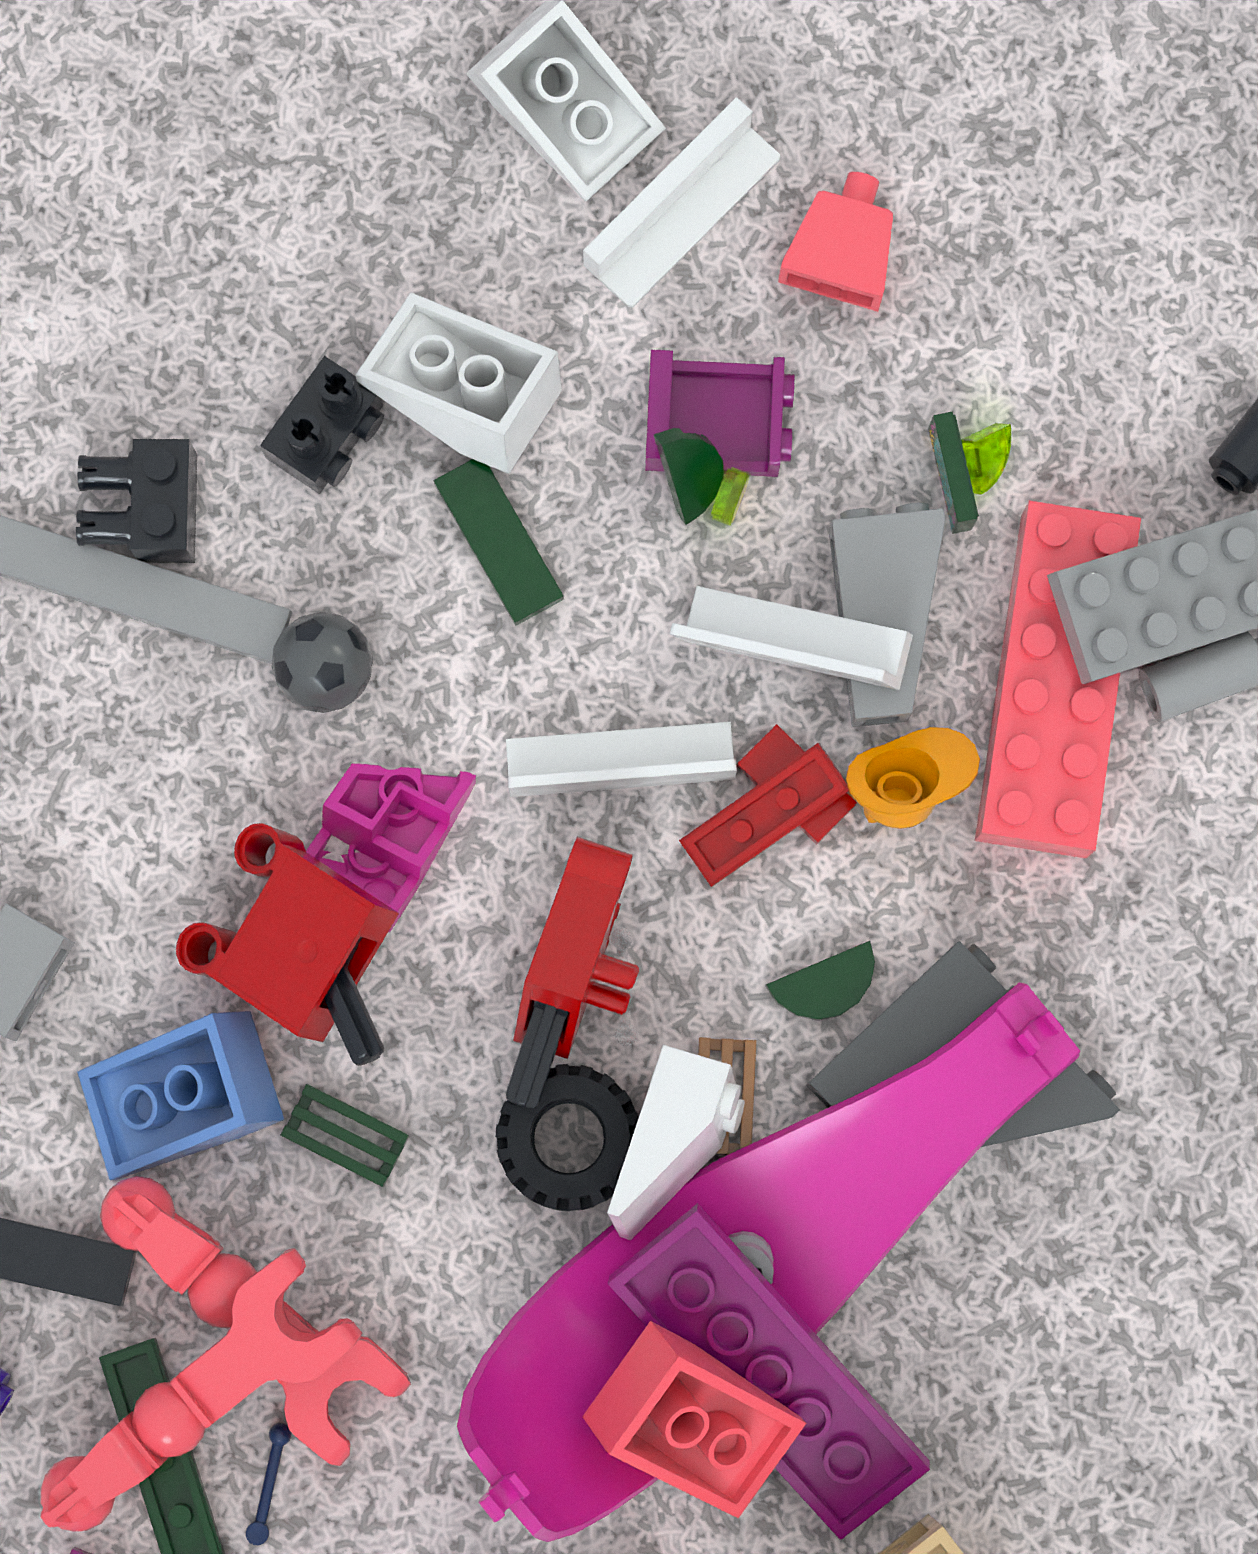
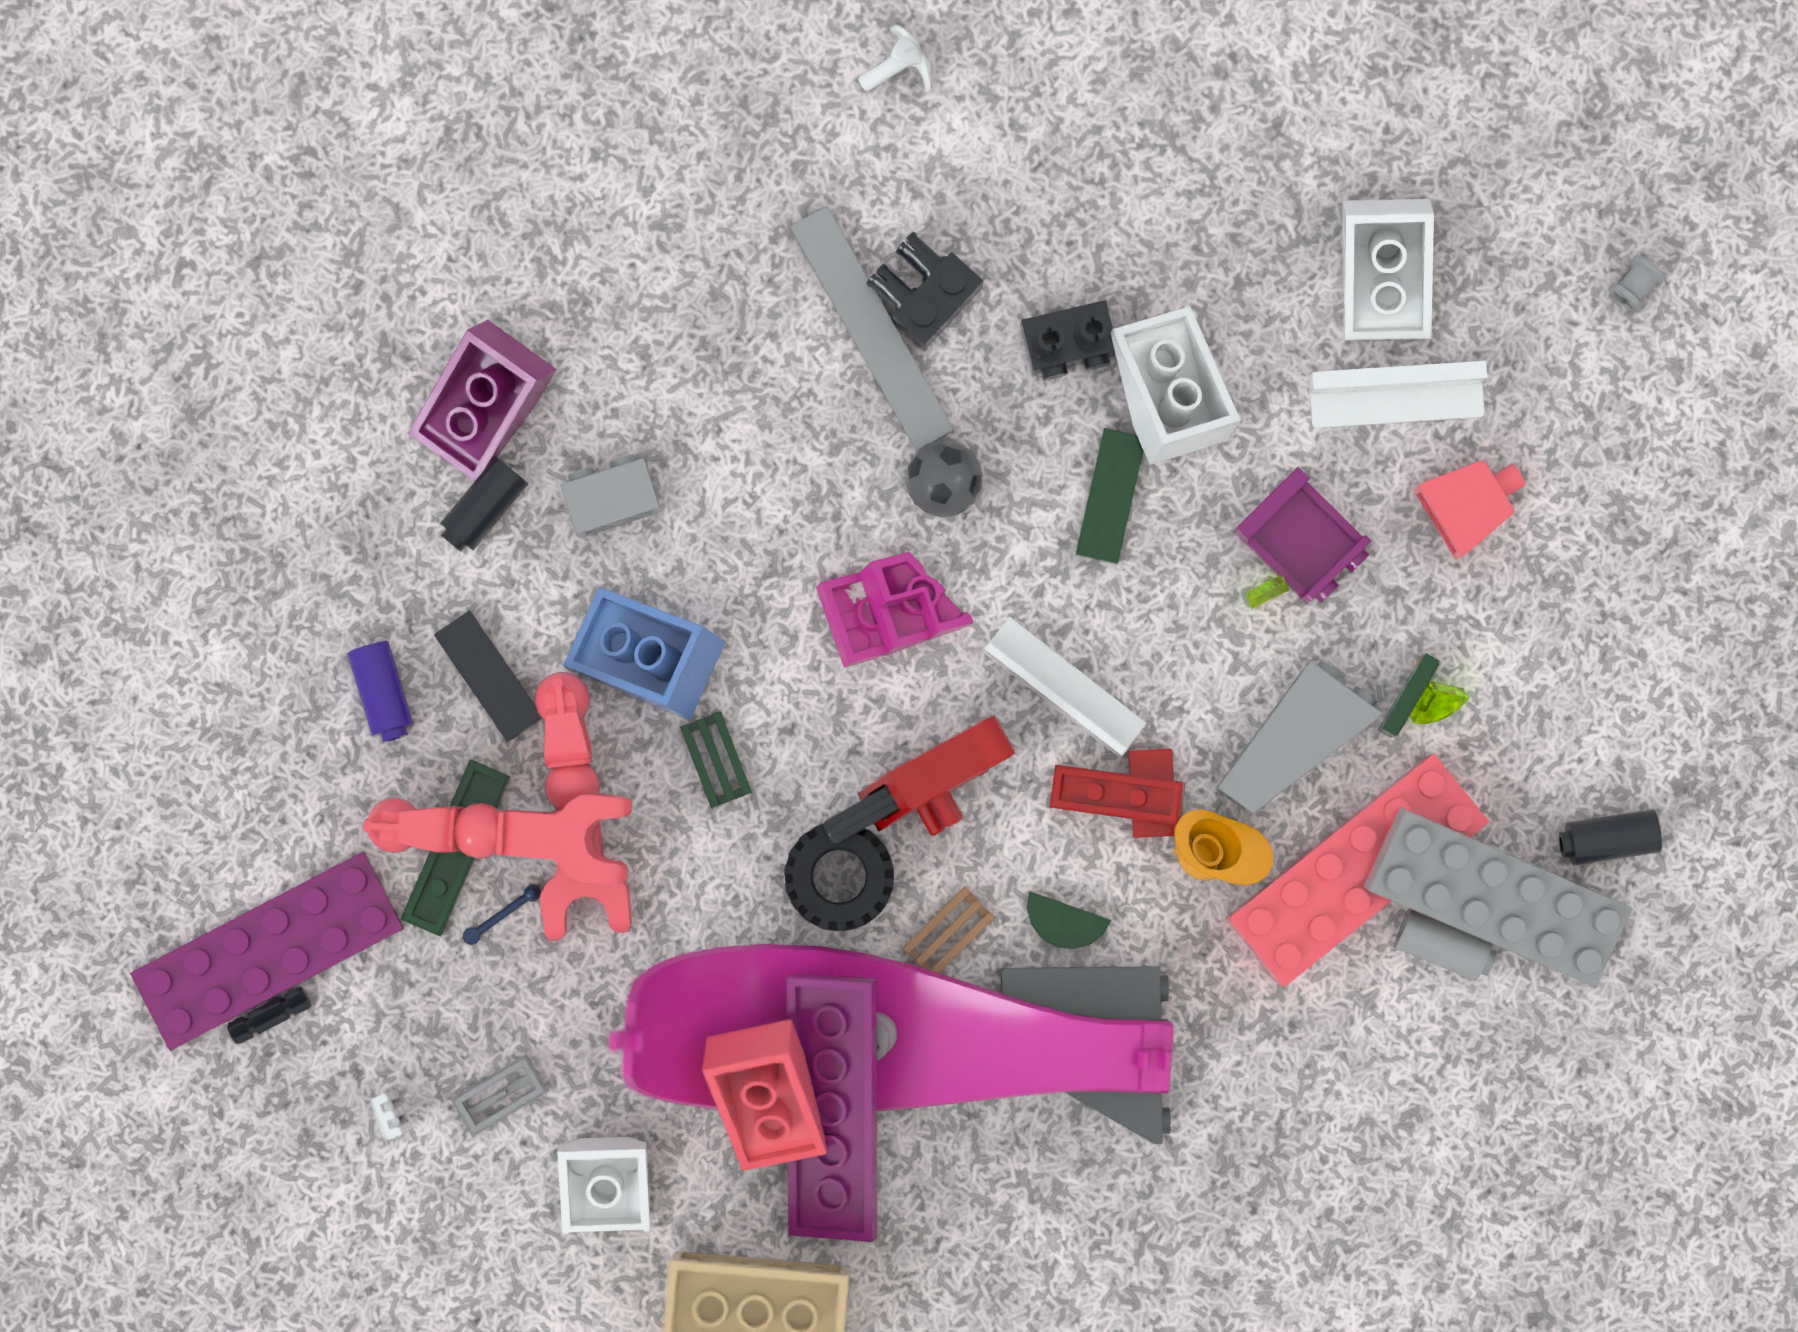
camera: 45 degrees right, 5 degrees up
(298, 944) = (785, 630): red piece -> none
(677, 1133) = (900, 930): white slope -> none
(691, 469) = (1256, 559): dark green tile -> none
(796, 637) = (1227, 710): white panel -> none

